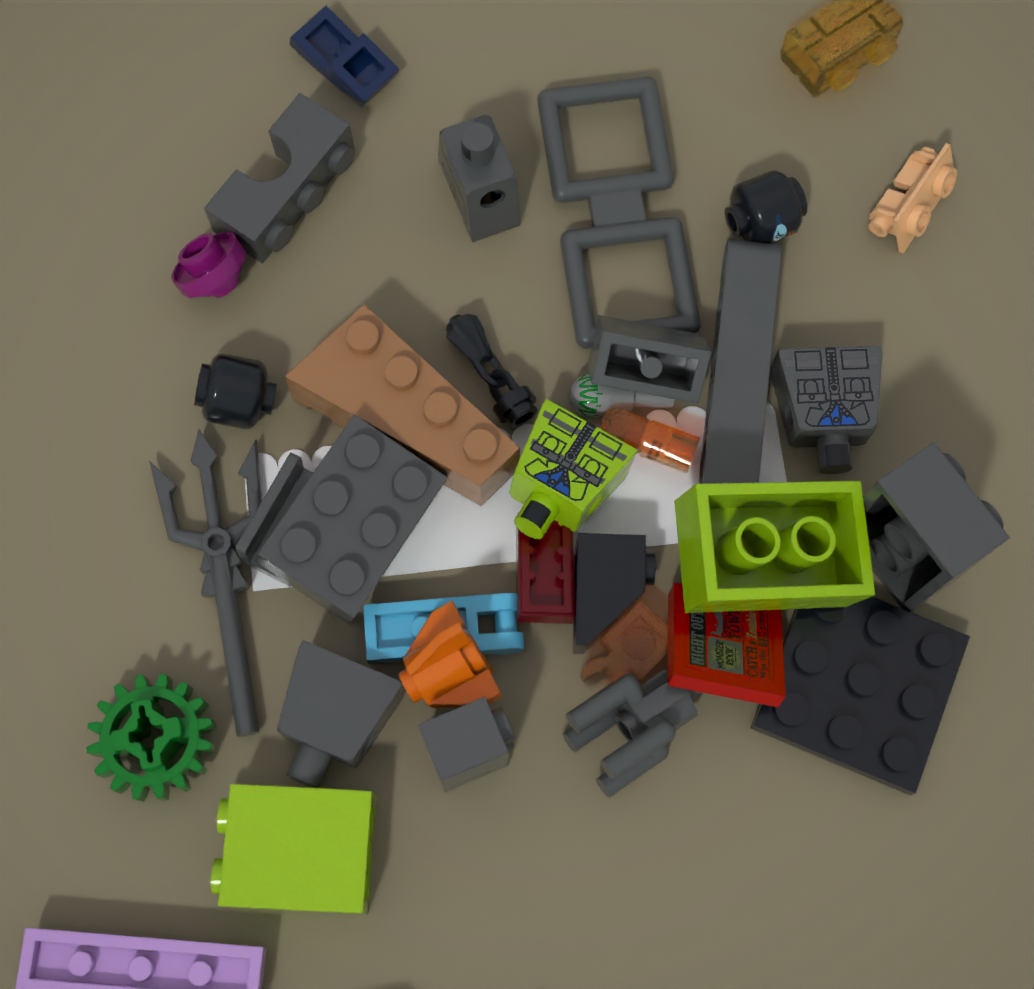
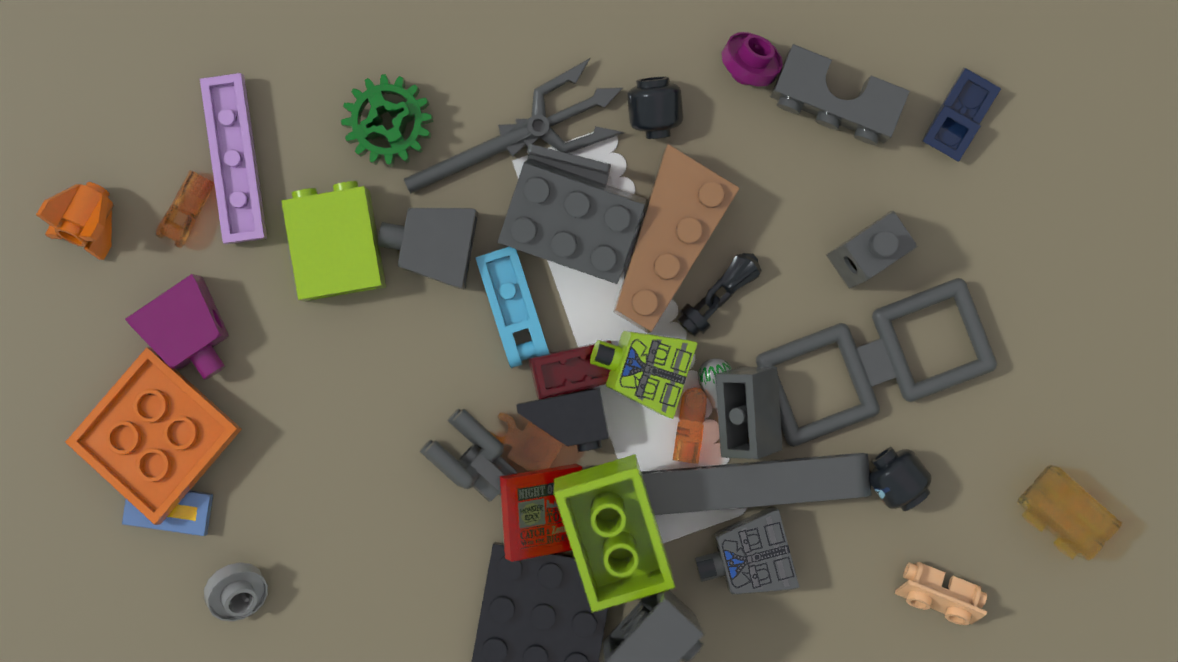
camera: 75 degrees right, 15 degrees up
(447, 664) = (480, 315): orange brick -> none
(468, 742) = (427, 344): dark grey brick -> none

